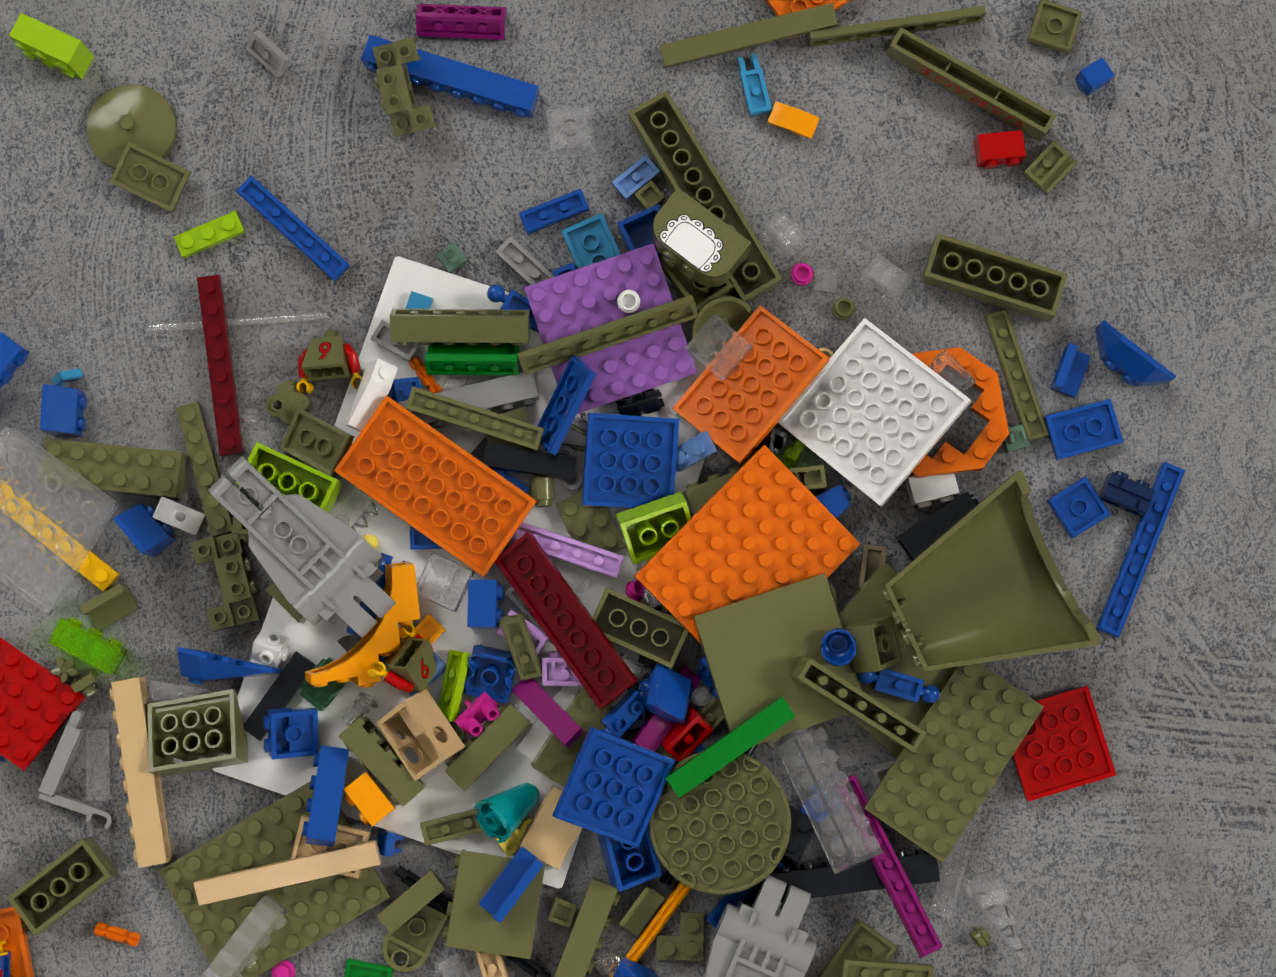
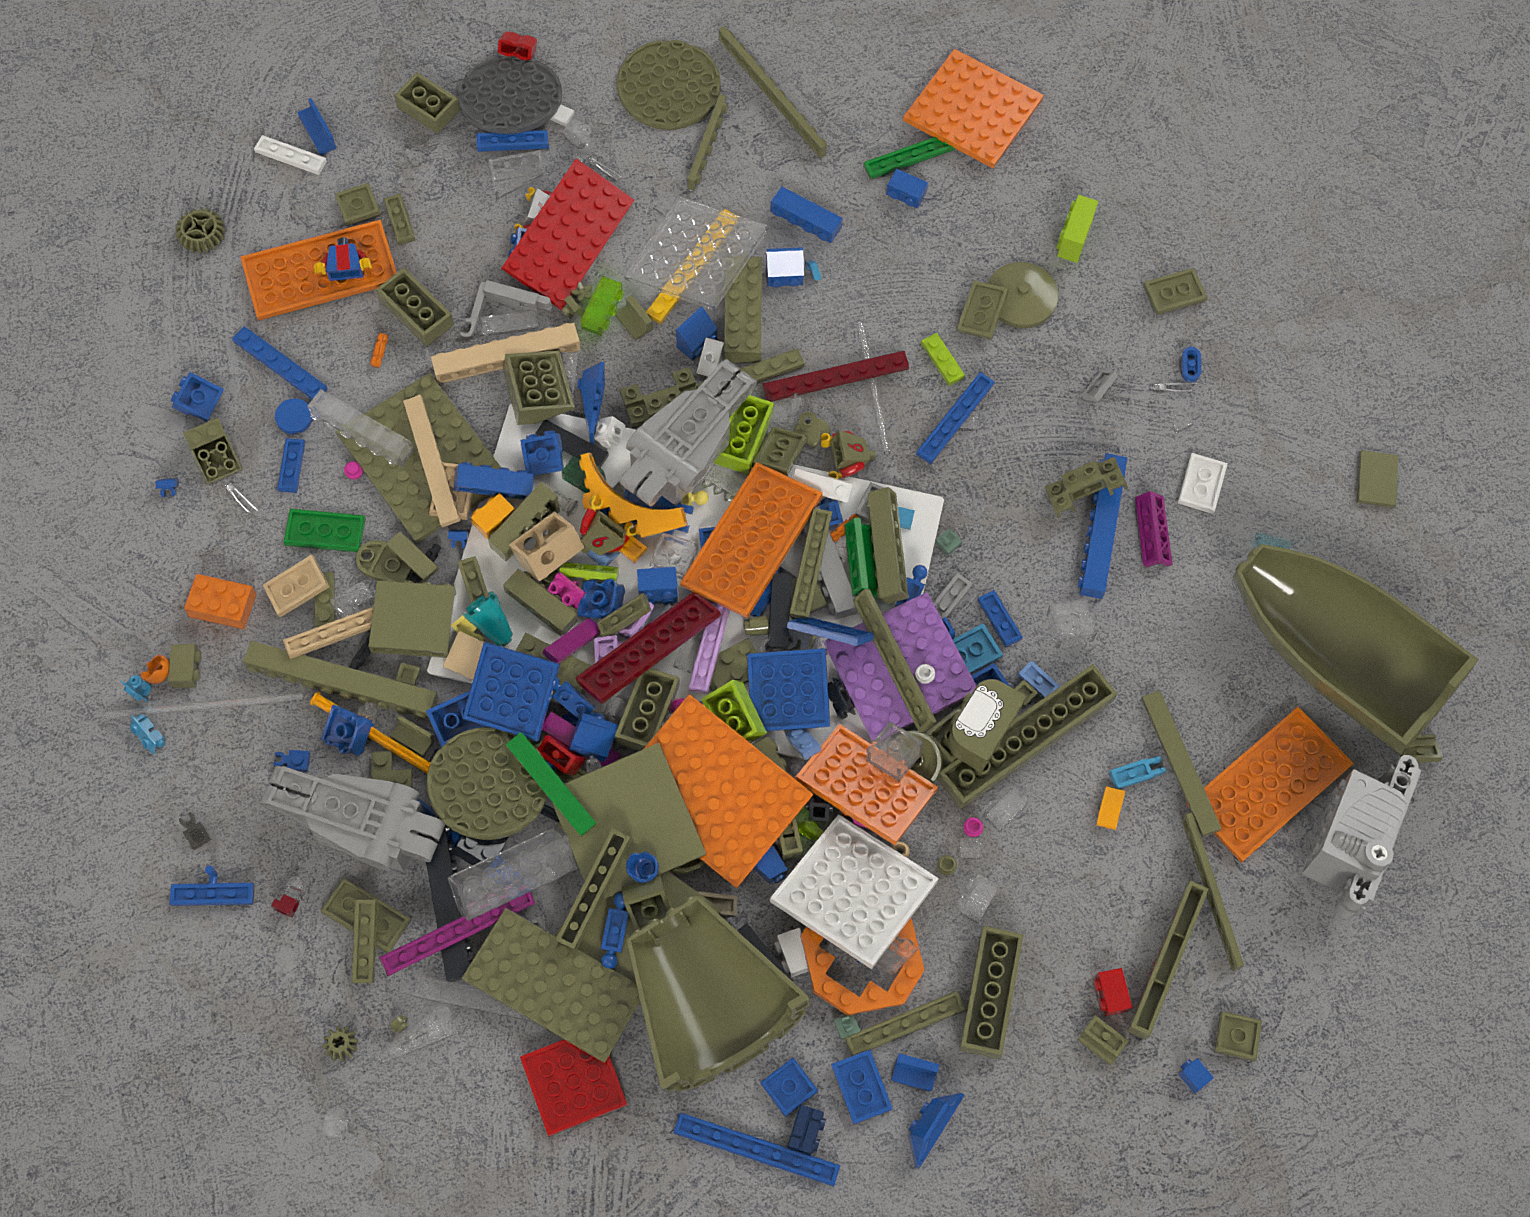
camera: 80 degrees right, 15 degrees down
(511, 884) = (428, 625): blue panel -> none

